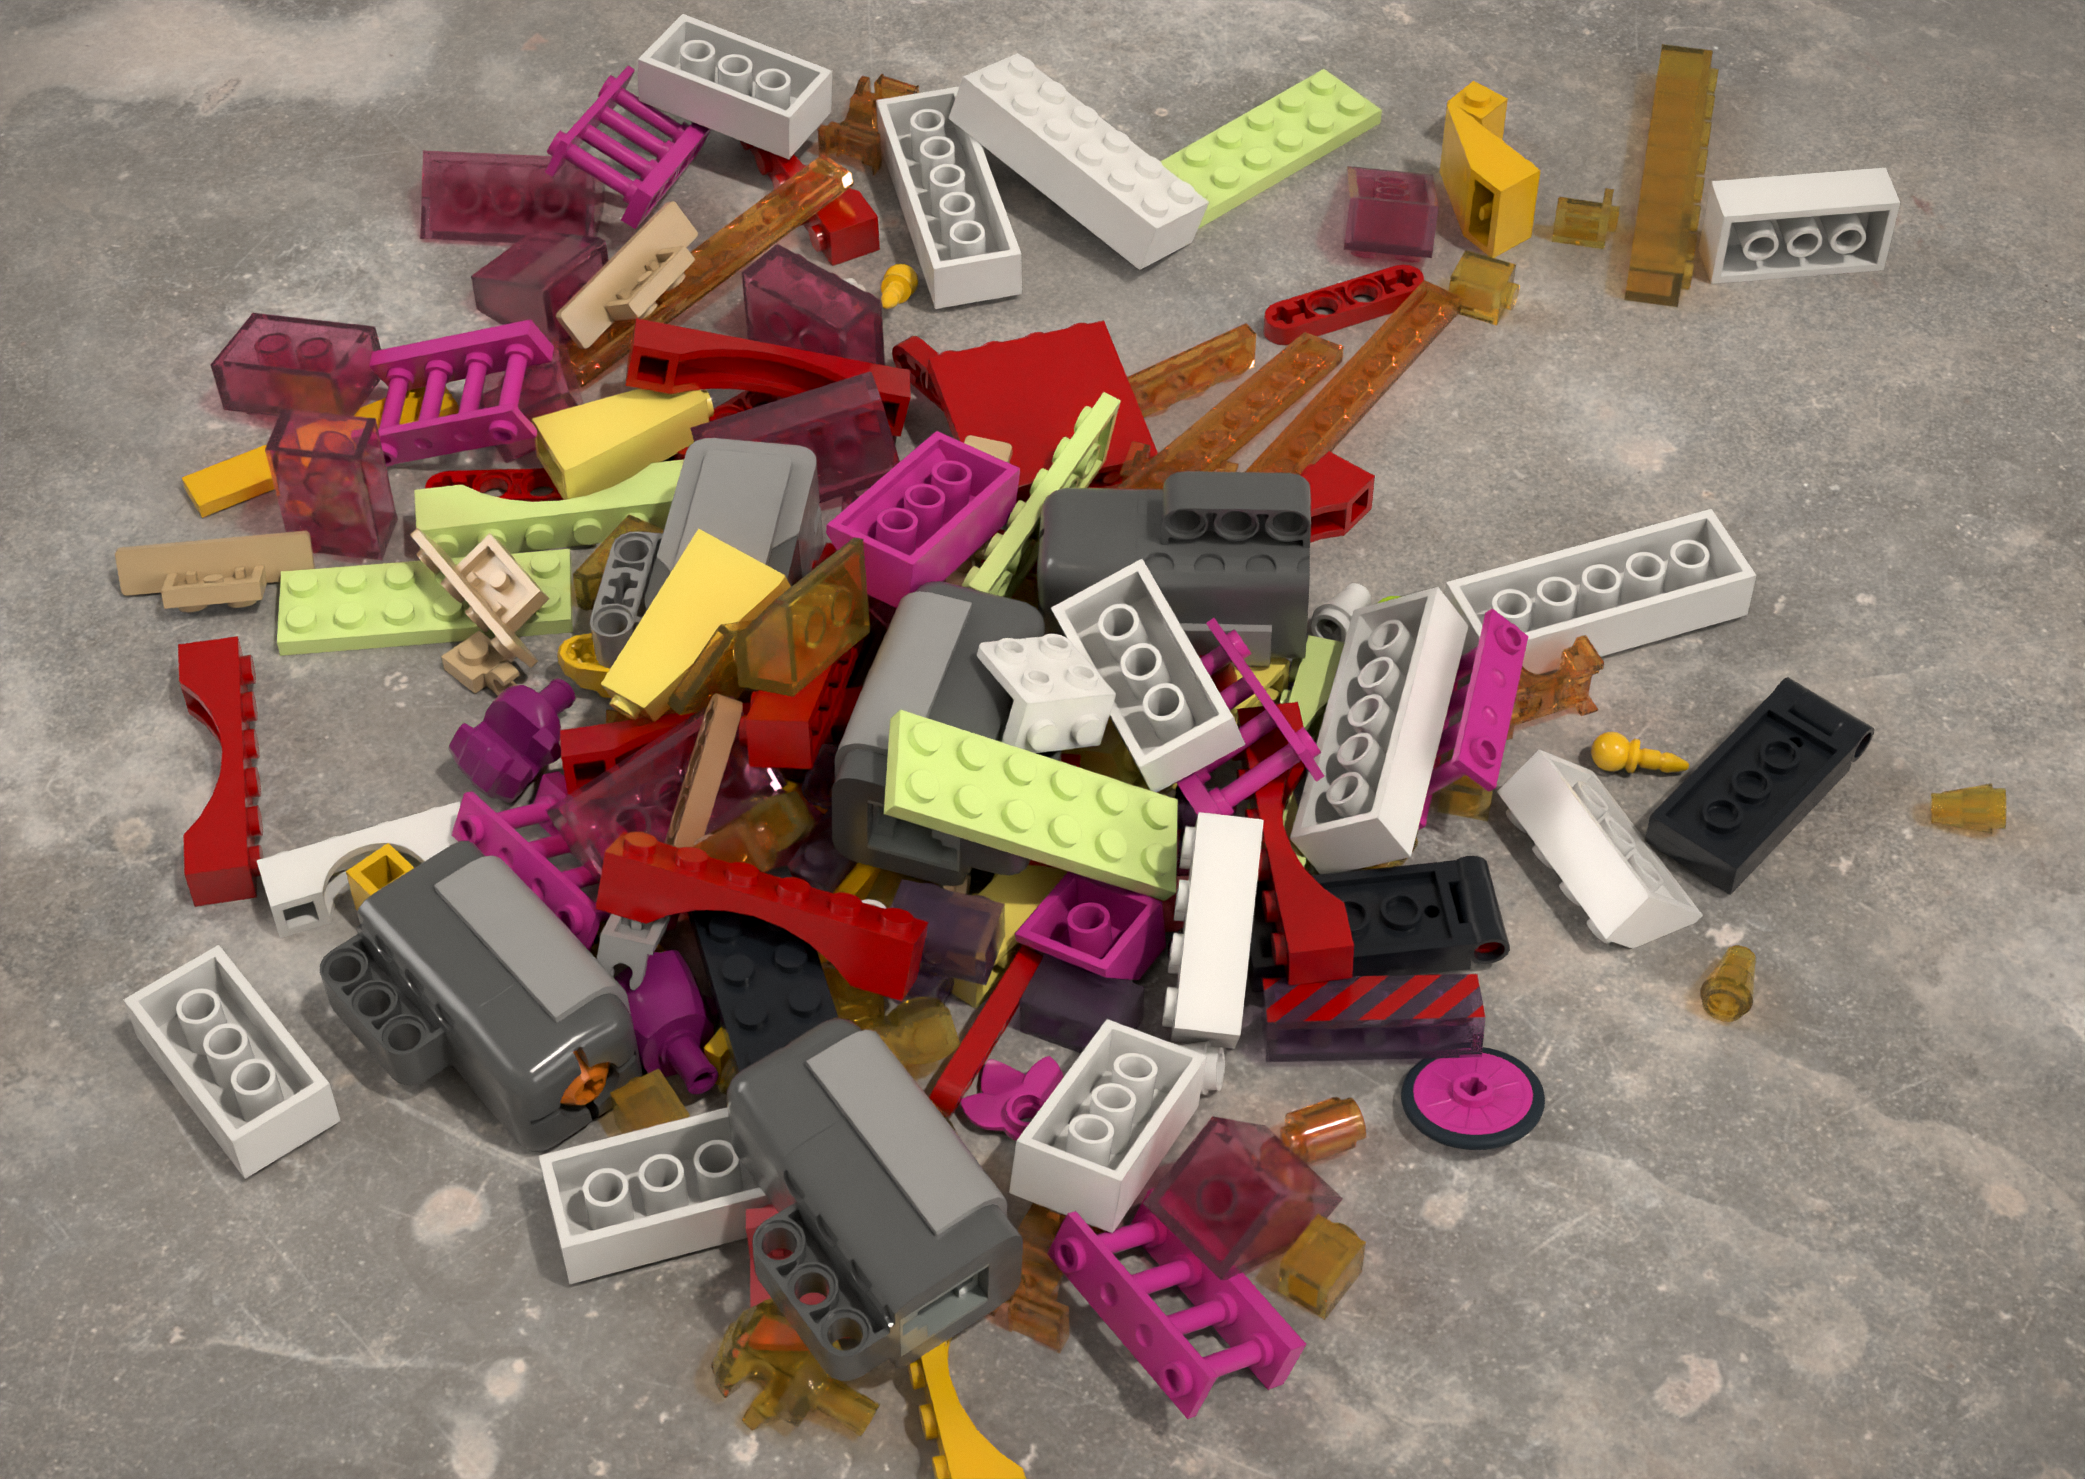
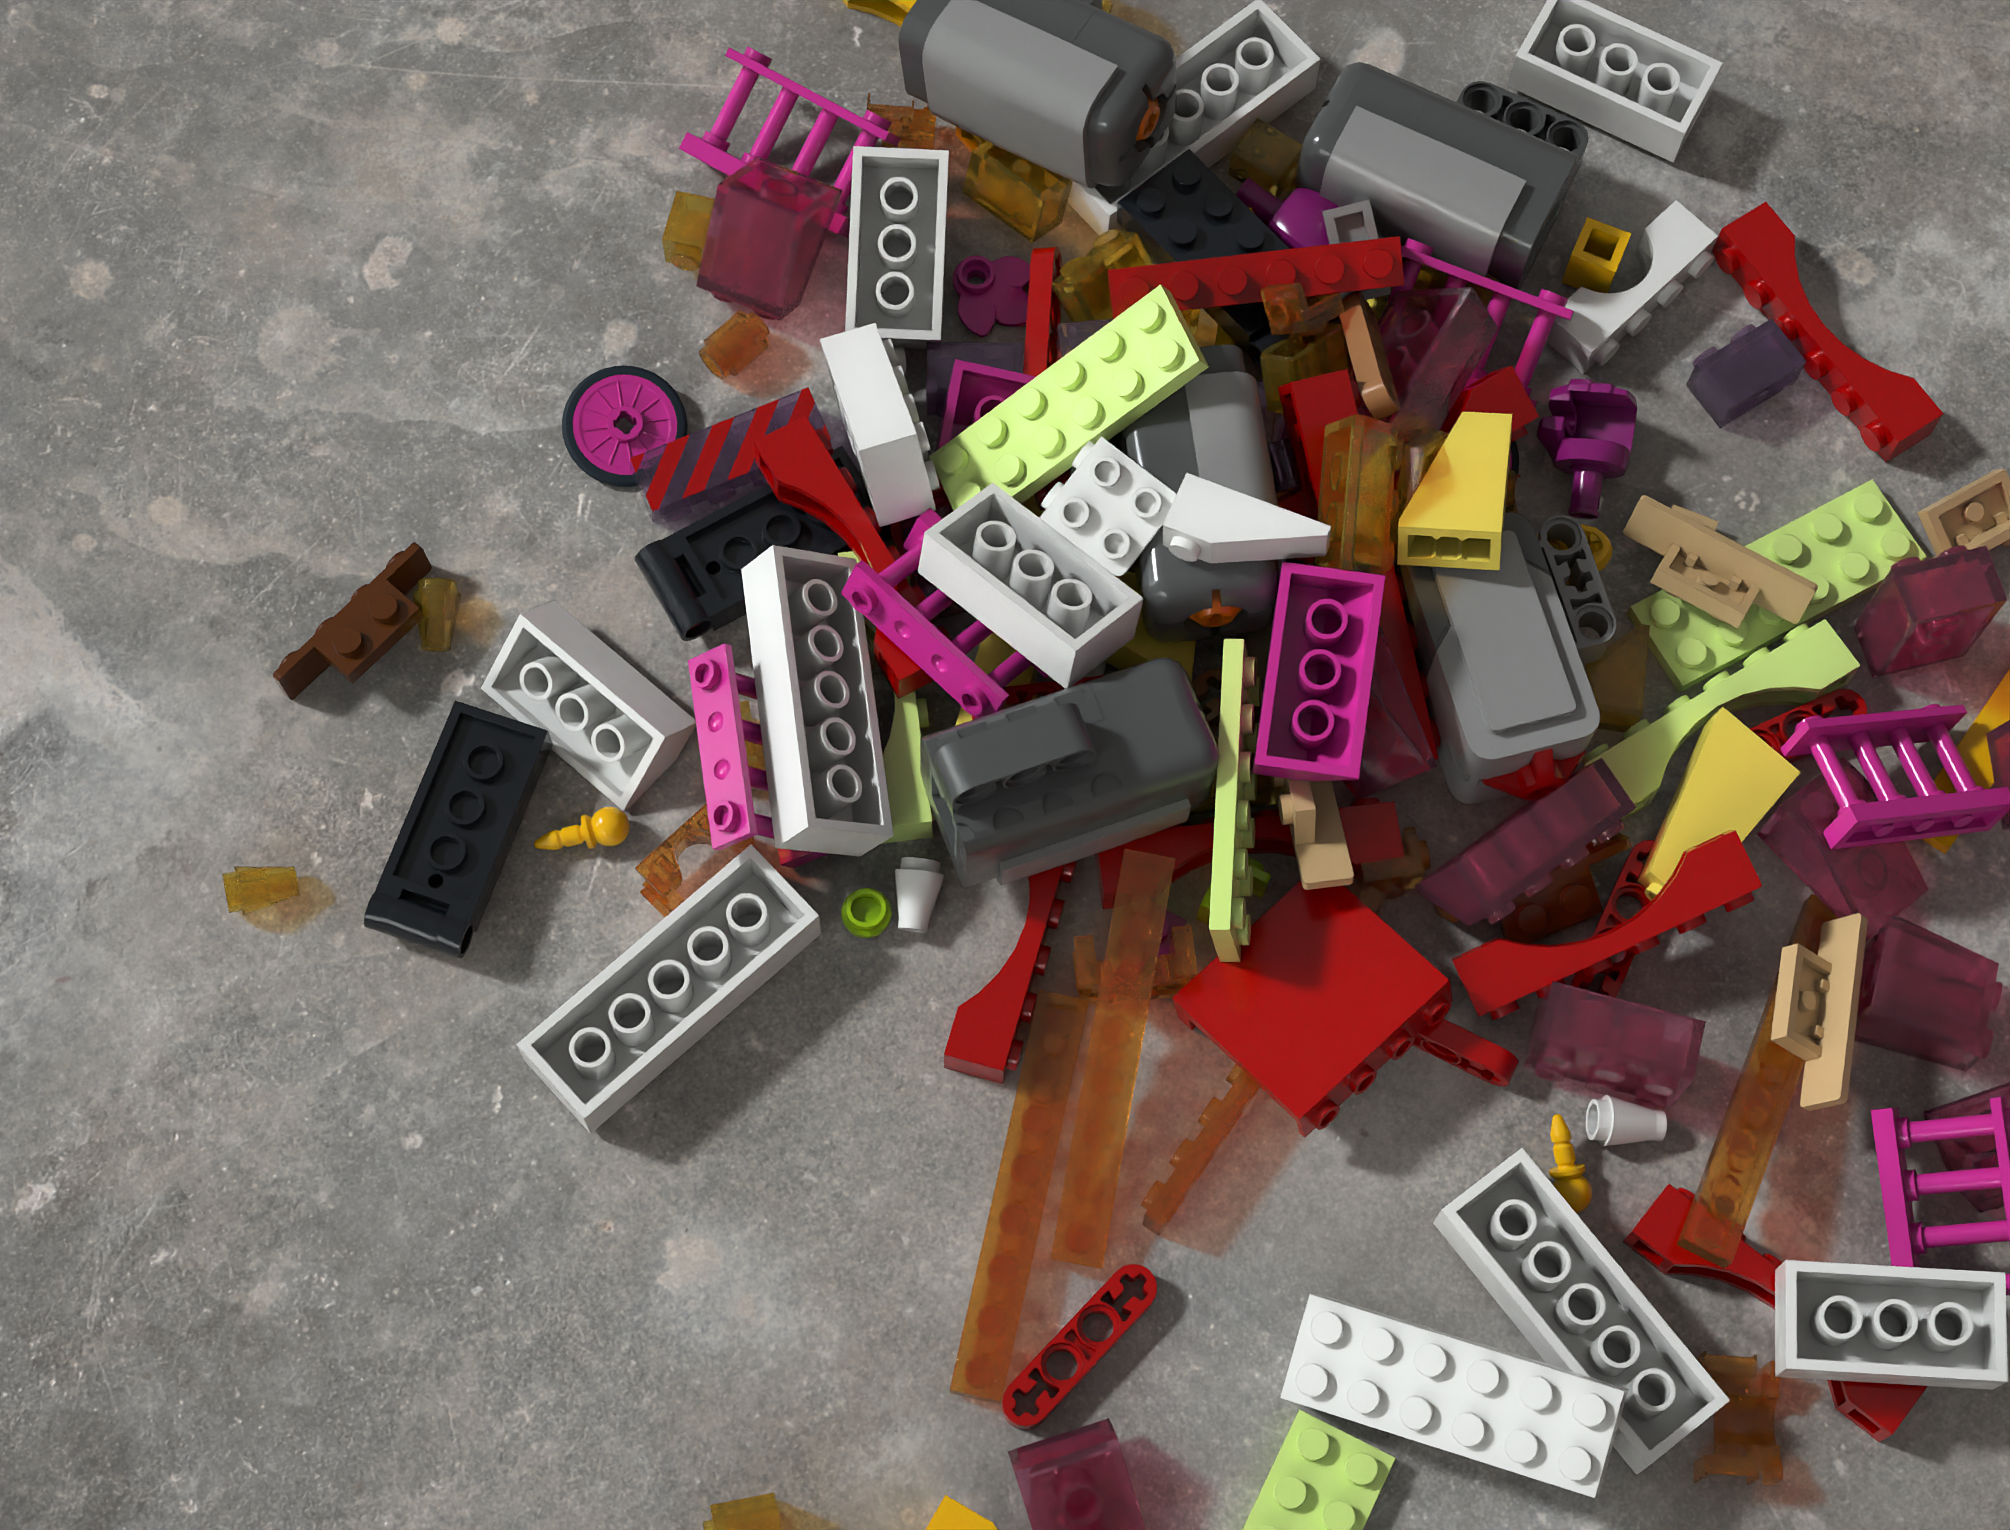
camera: 155 degrees right, 20 degrees up
(320, 758) = (1744, 372): none -> clear purple brick
(939, 595) = (1233, 527): none -> white slope
(1485, 286) = (932, 1420): clear yellow brick -> none
(1813, 979) = (362, 629): none -> reddish brown bracket

